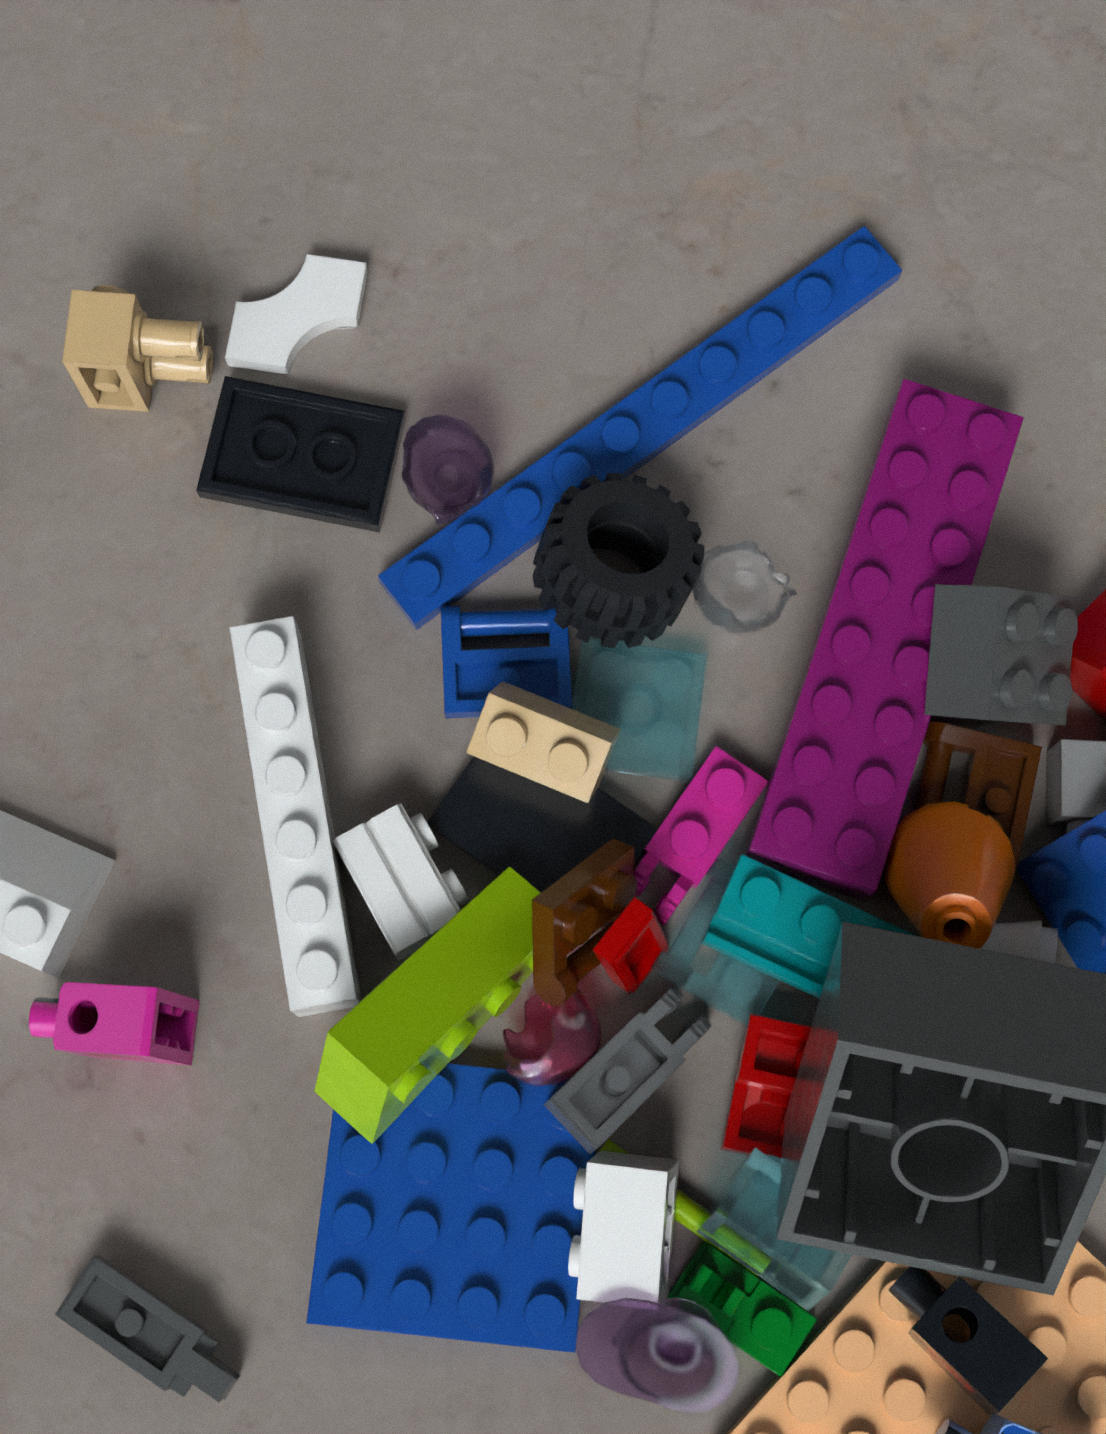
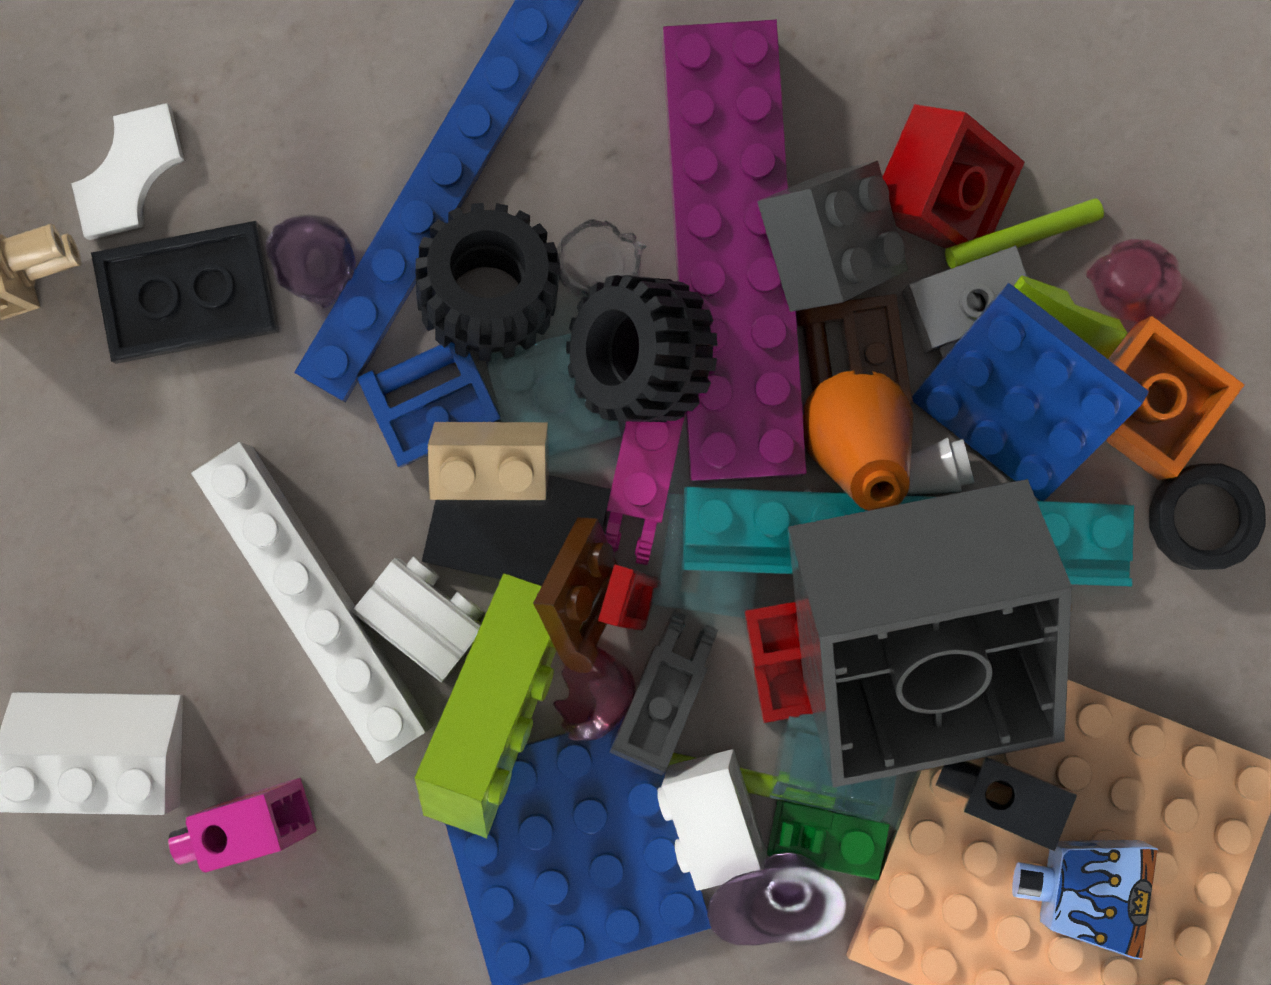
camera: 20 degrees left, 10 degrees up
(752, 689) = (641, 349): none -> black tyre

